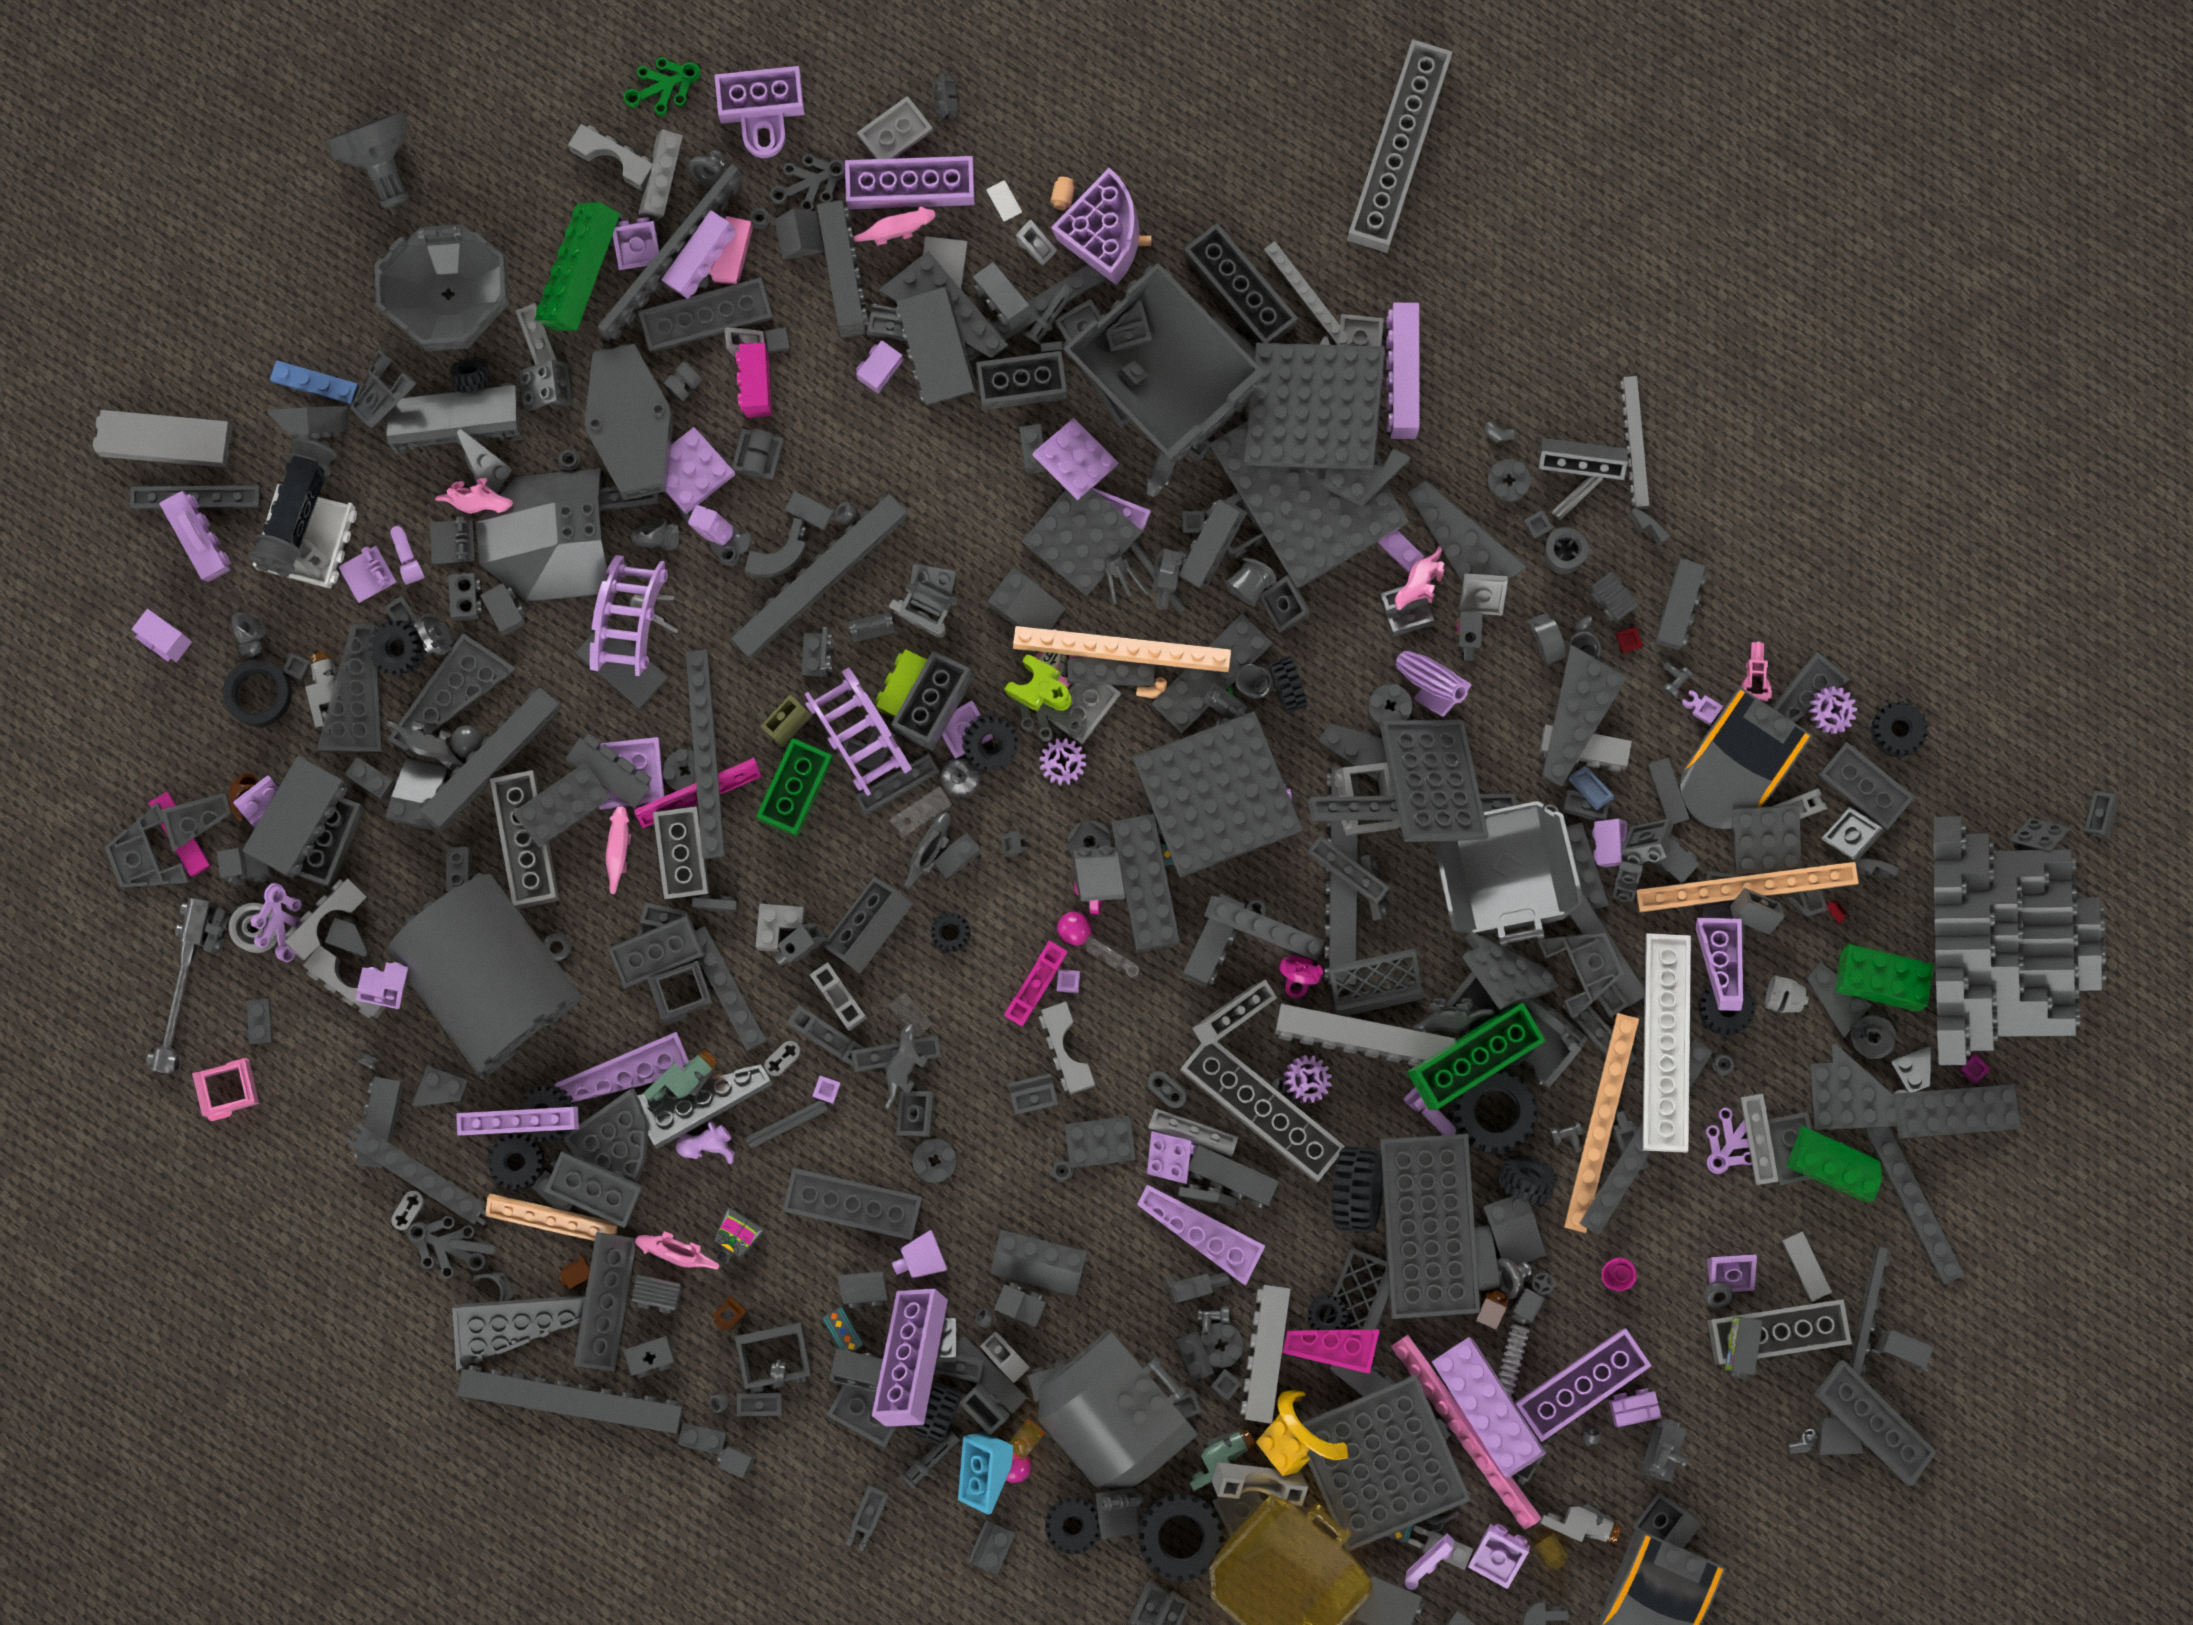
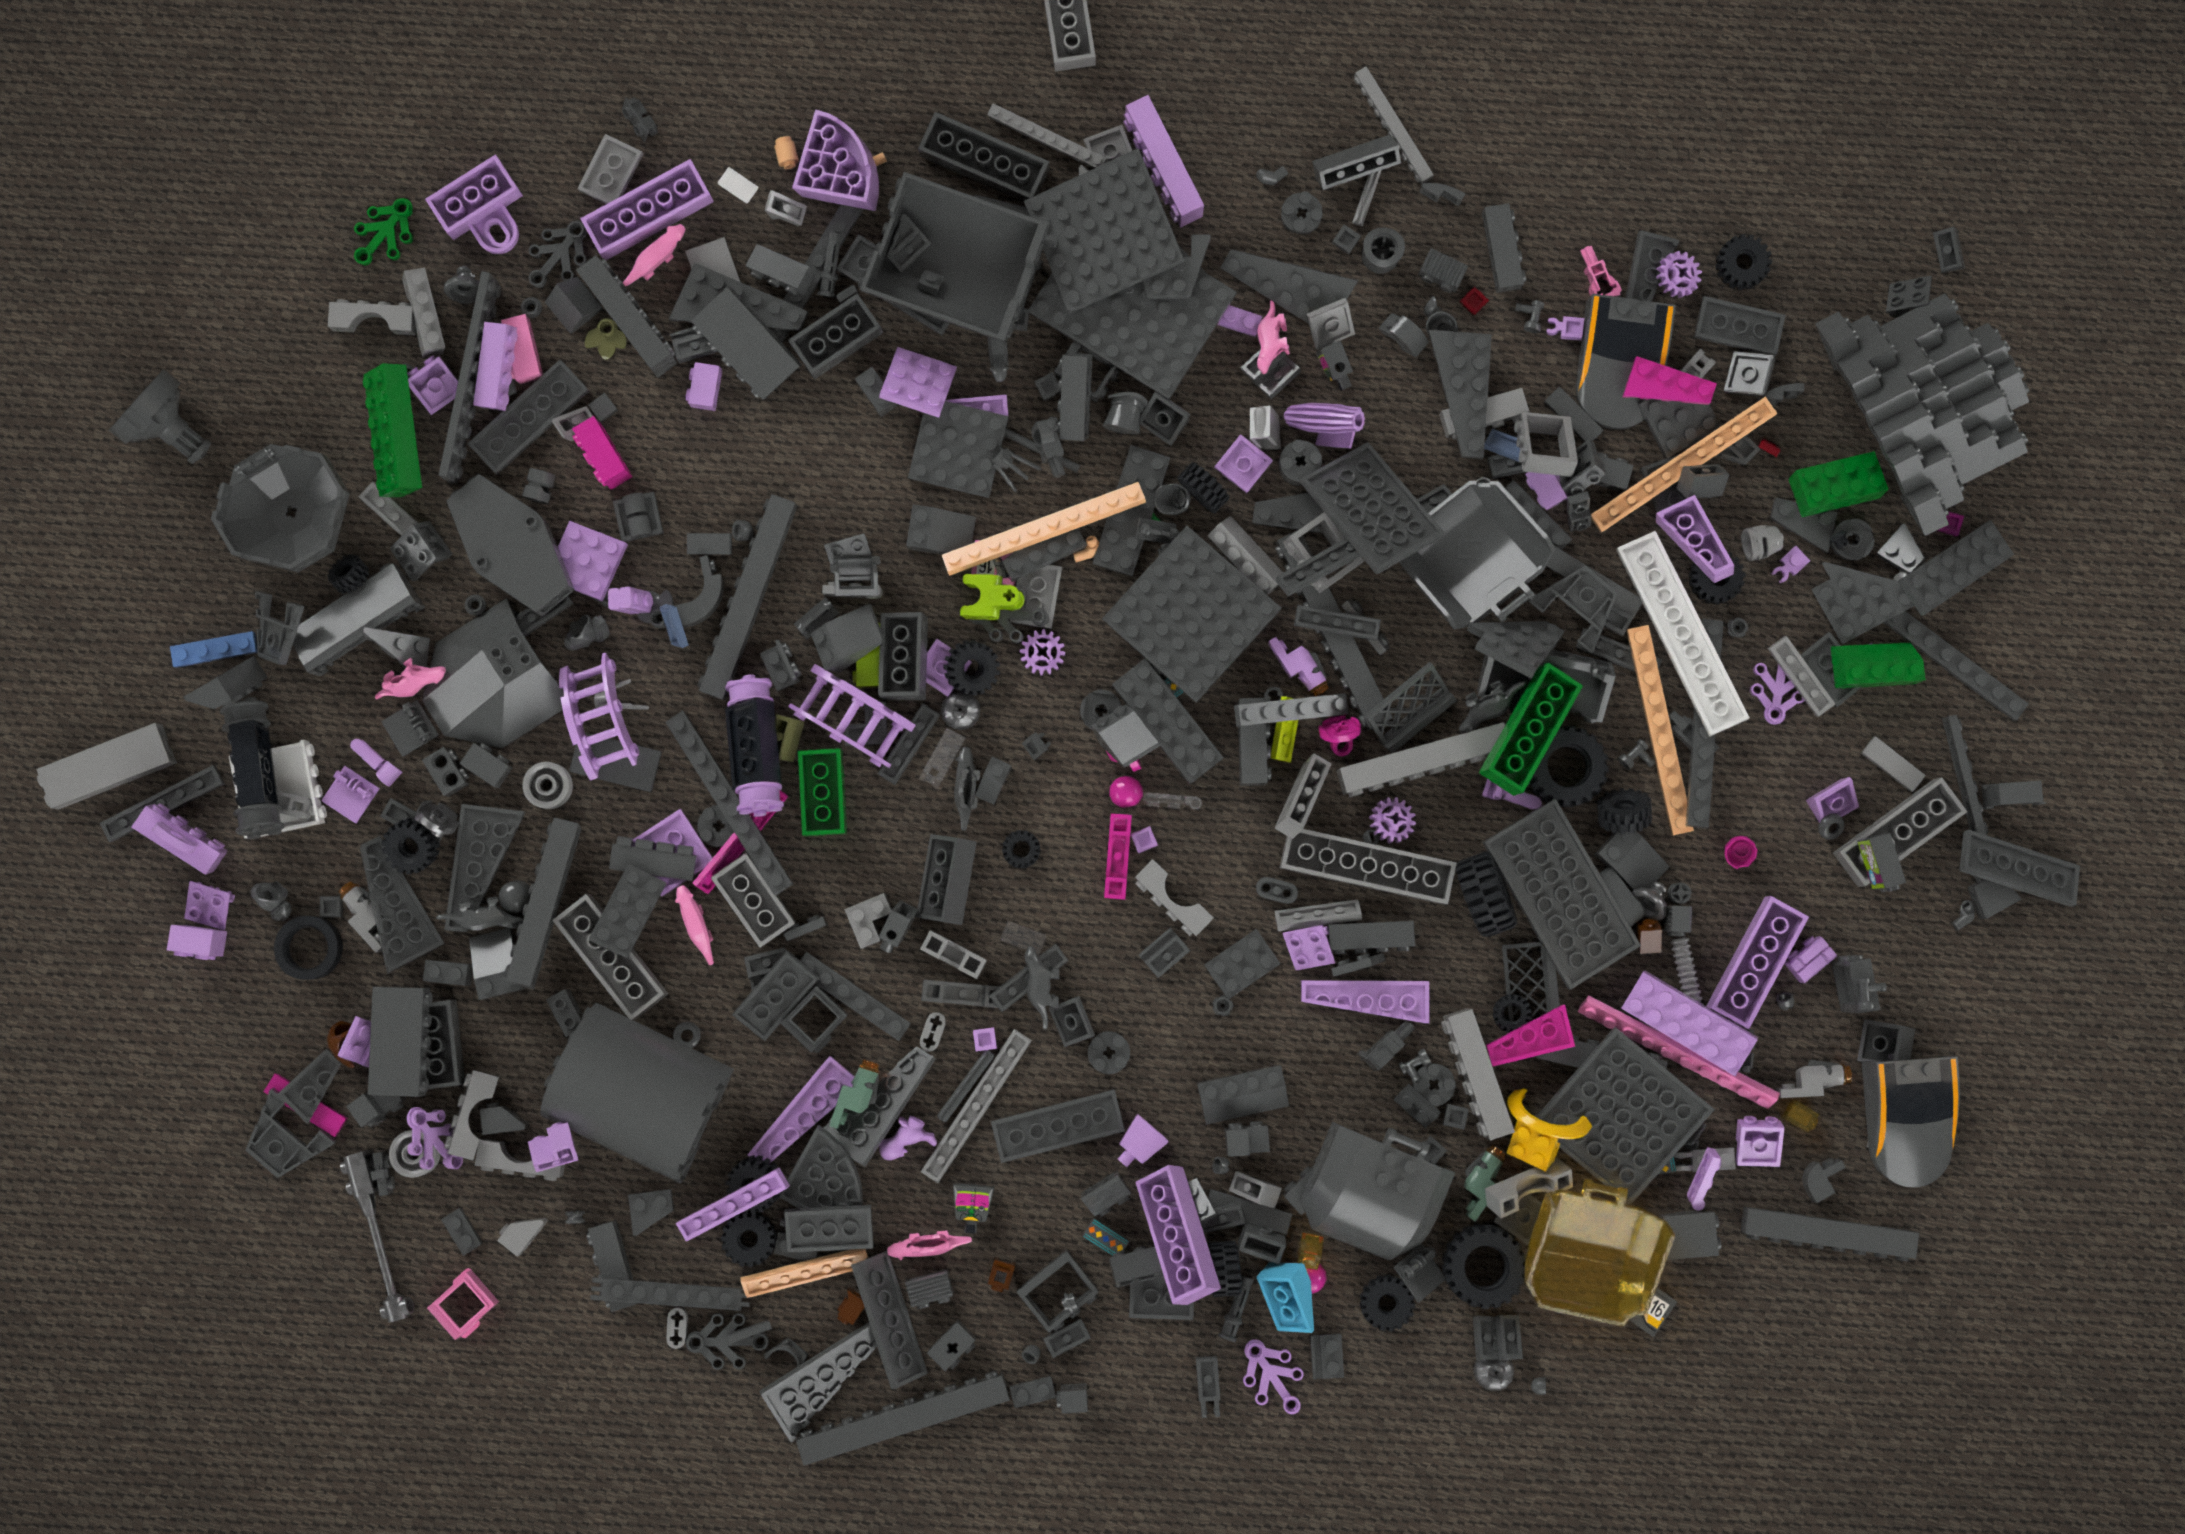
camera: 25 degrees left, 5 degrees up
(187, 609) = (208, 905): none -> lavender hinge
(311, 1051) = (520, 1234): none -> light grey slope
(558, 665) = (561, 785): none -> light grey wheel
(738, 568) = (674, 625): none -> sand blue tile
(754, 712) = (753, 746): none -> black brick
(787, 1147) = (976, 1106): none -> light grey tile
(810, 281) = (606, 342): none -> olive plate
(890, 659) = (847, 638): none -> dark grey slope
(930, 1536) = (1270, 1373): none -> lavender plant
(1245, 954) = (1284, 739): none -> neon yellow plate
(1295, 765) = (1246, 554): none -> light grey brick
(1297, 892) = (1301, 663): none -> lavender plate
(1337, 682) = (1243, 464): none -> lavender plate
(1373, 659) = (1265, 428): none -> light grey torso
(1635, 785) = (1549, 425): none -> light grey window
(1759, 797) = (1660, 382): none -> dark pink wing
(1806, 1030) = (1792, 563): none -> lavender plate

